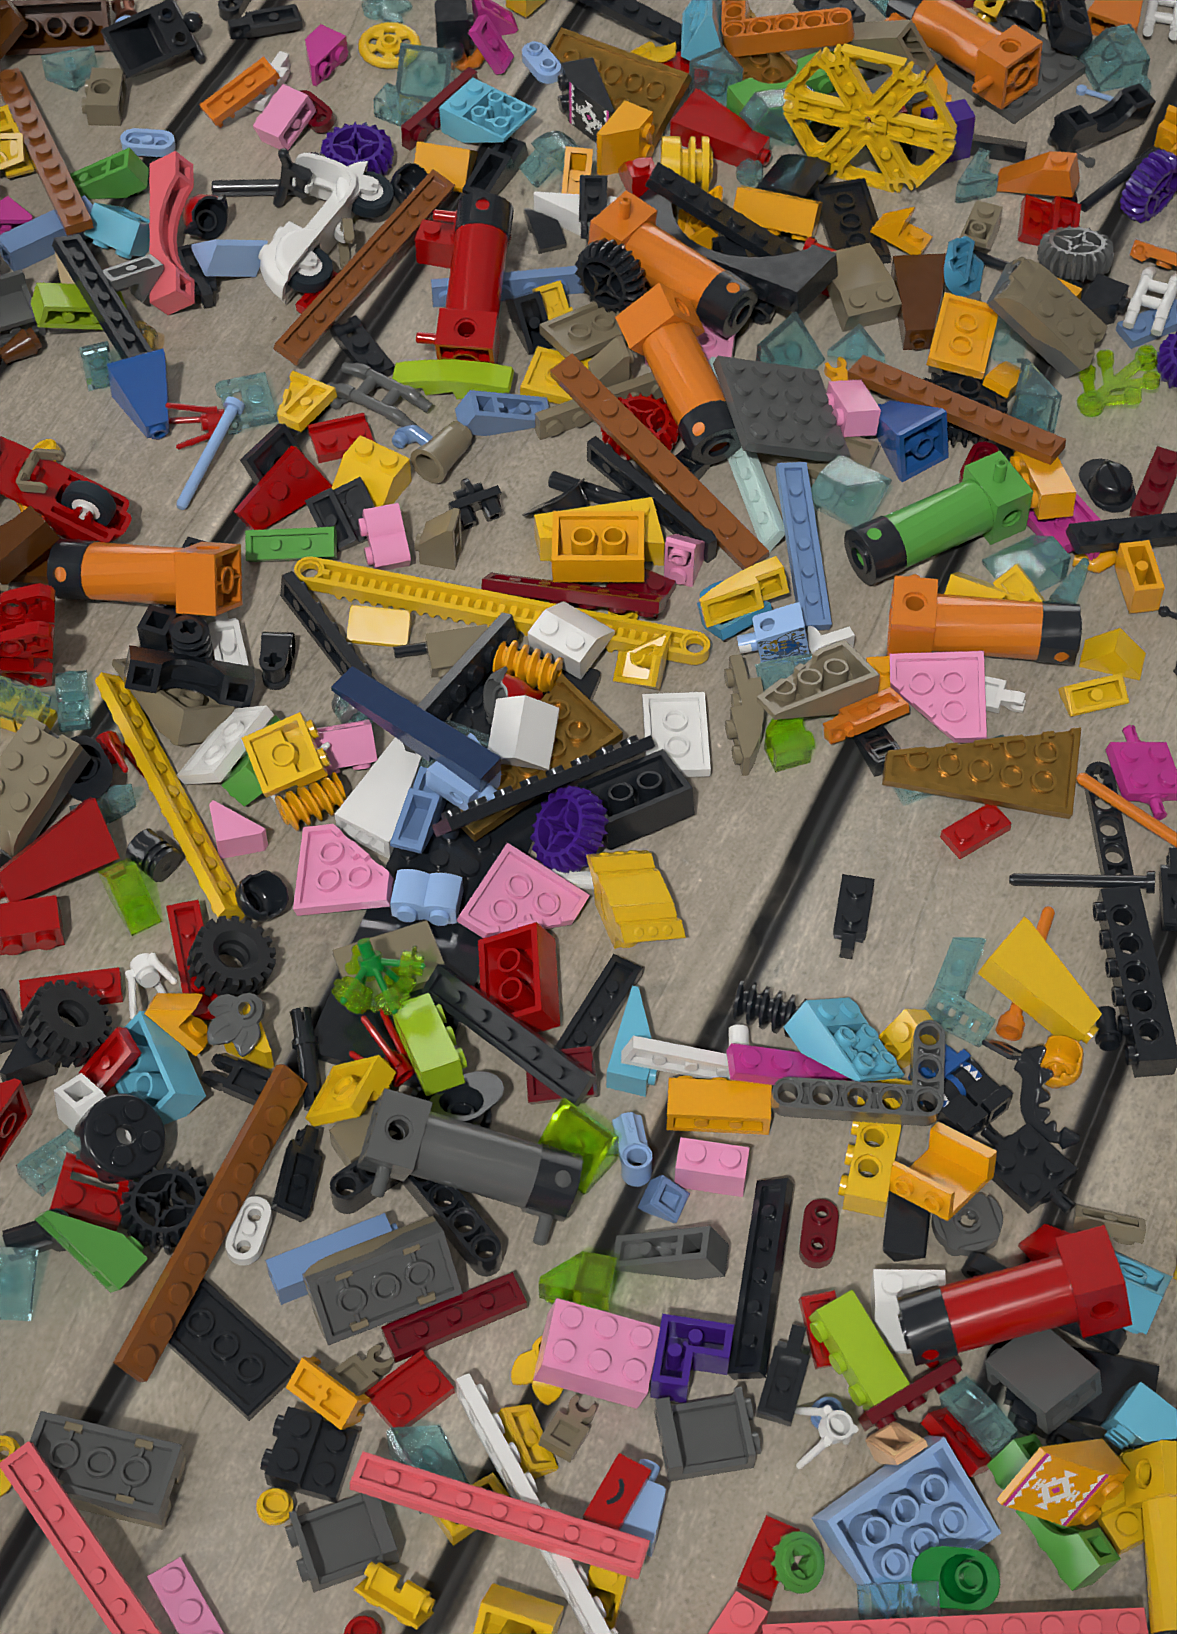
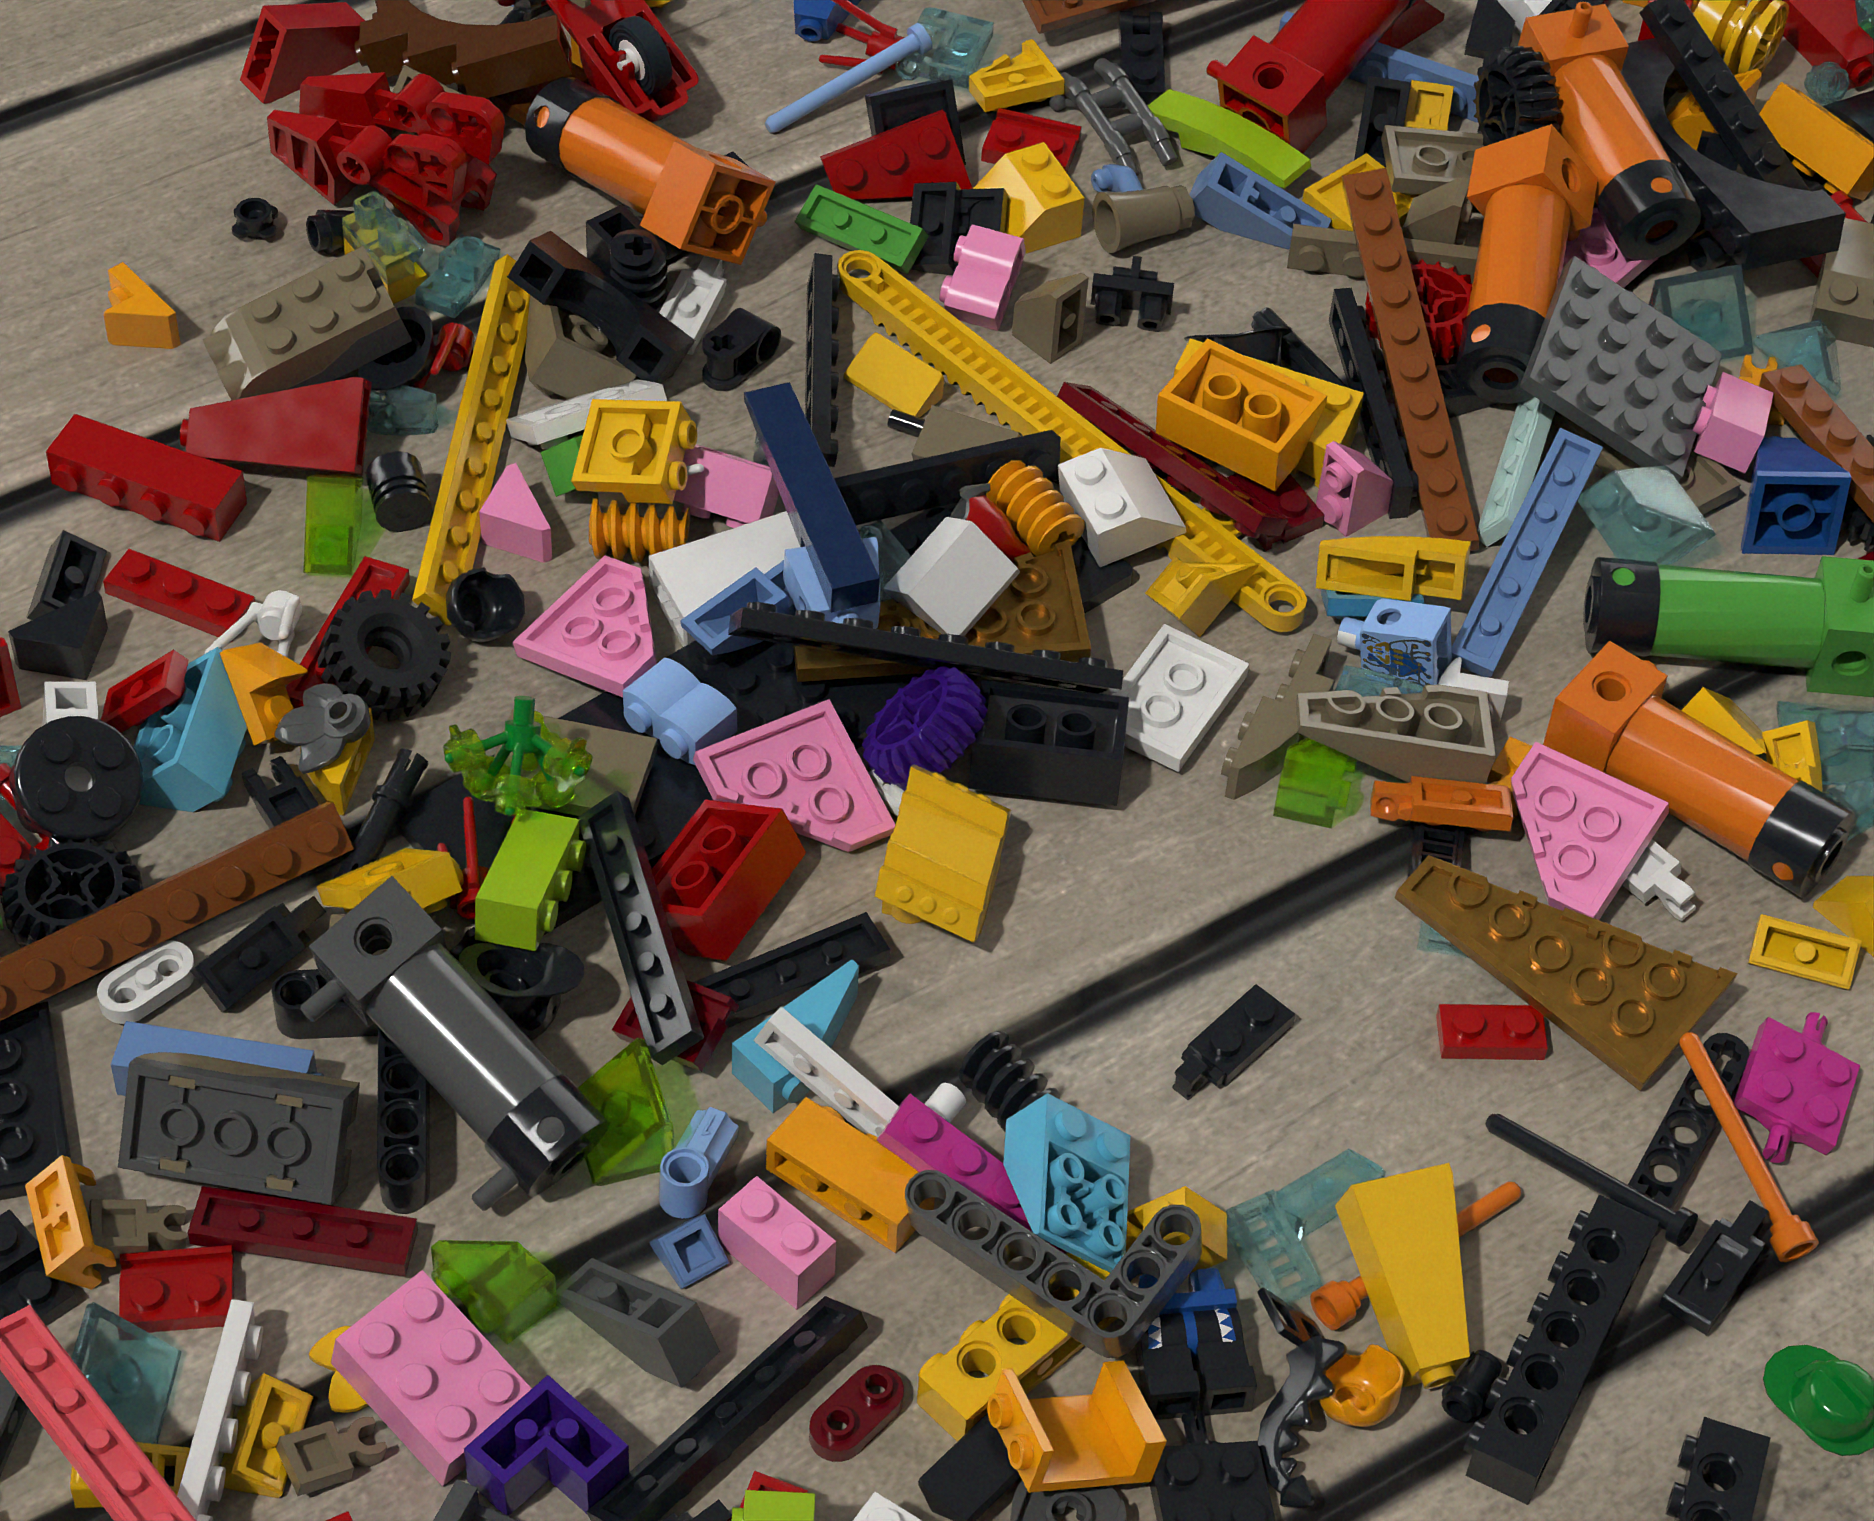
camera: 30 degrees right, 5 degrees down
(57, 1038) = (102, 631): black tyre -> none

